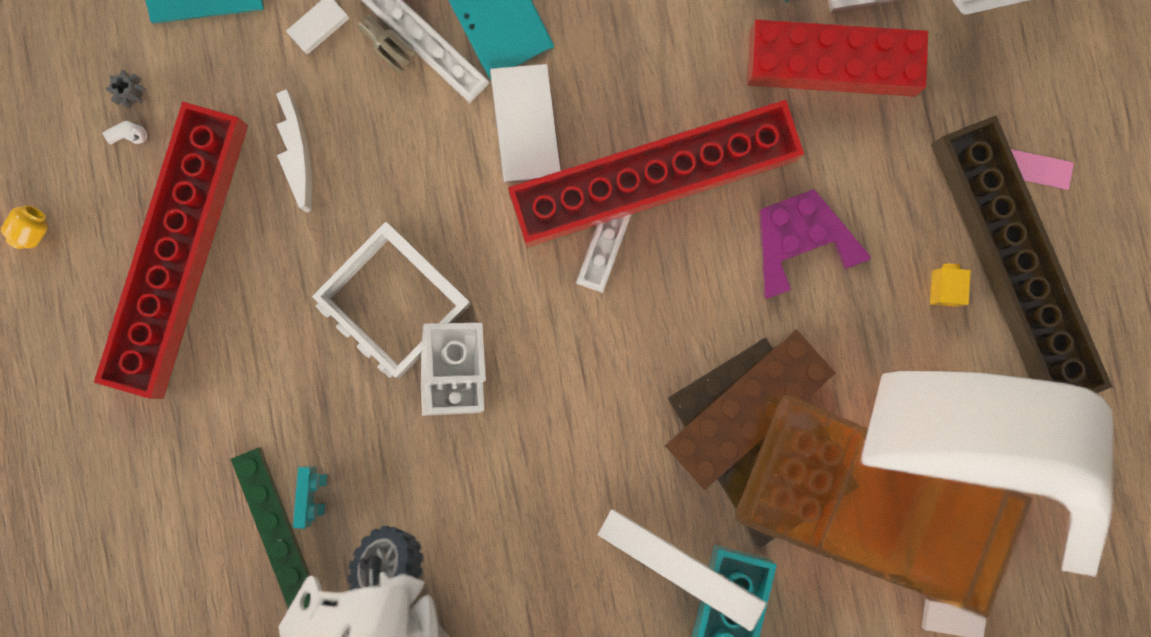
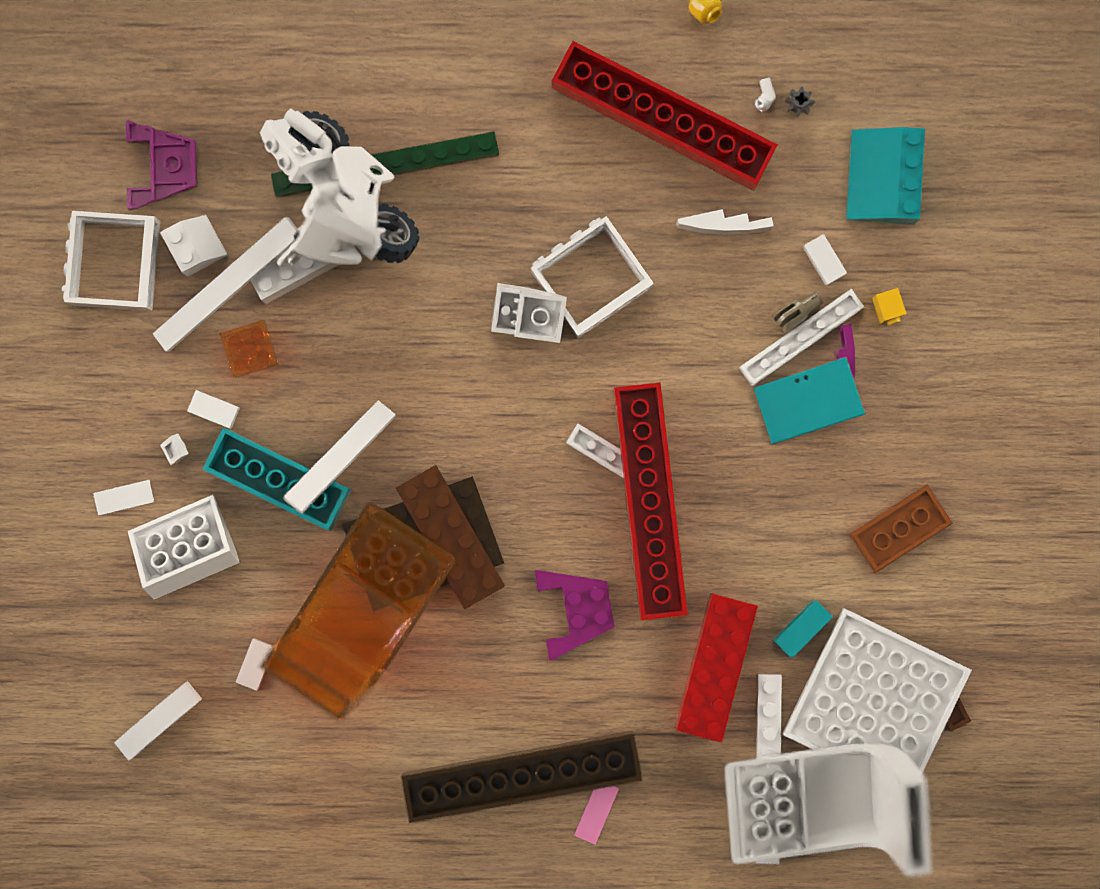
camera: 105 degrees right, 0 degrees up
(305, 508) = (445, 181): teal plate -> none
(524, 122) = (712, 408): white tile -> none
(950, 286) = (515, 718): yellow brick -> none
(1005, 436) = (387, 724): white piece -> none

